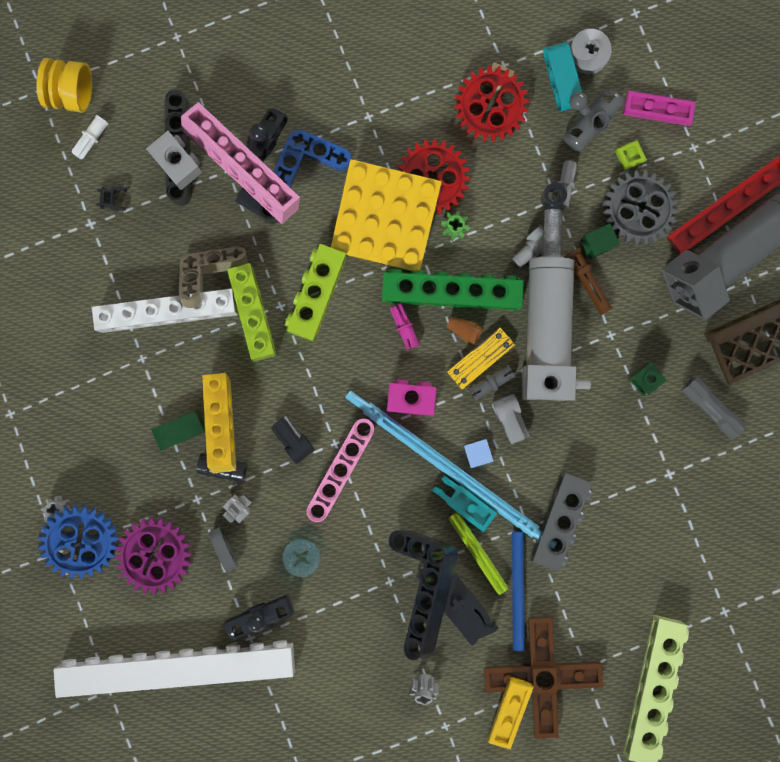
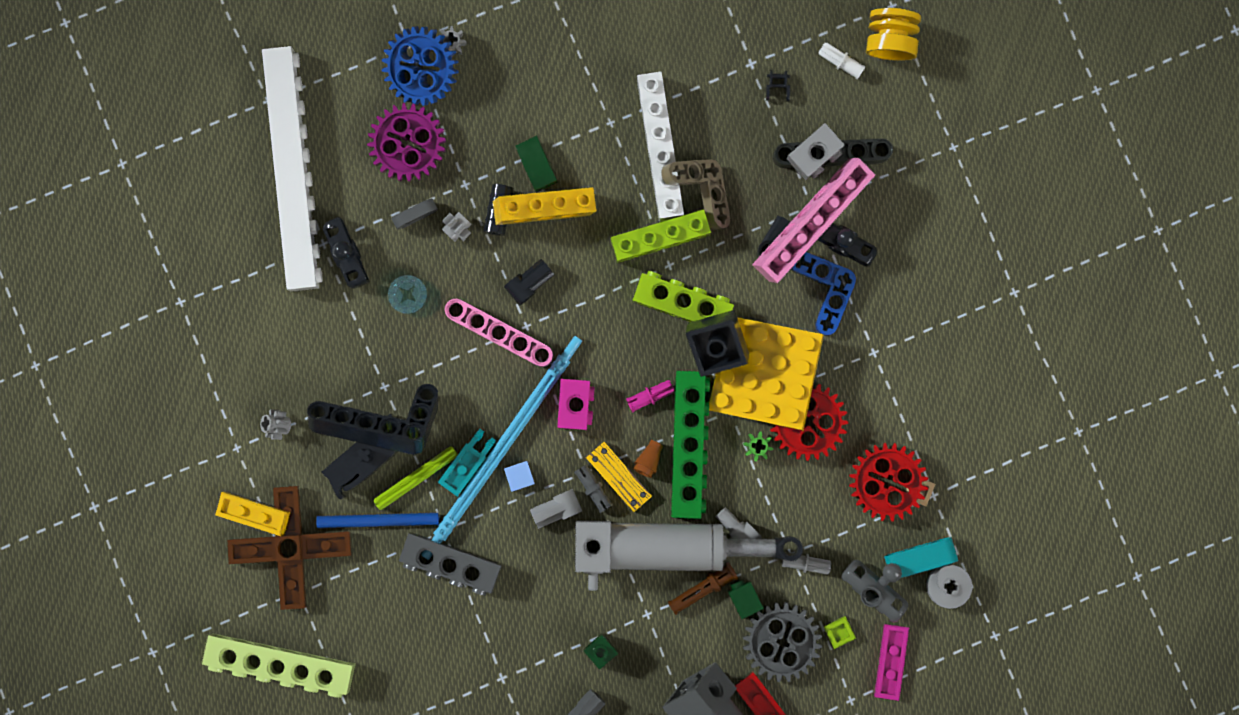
camera: 80 degrees right, 0 degrees up
(356, 258) = (717, 343): none -> black brick

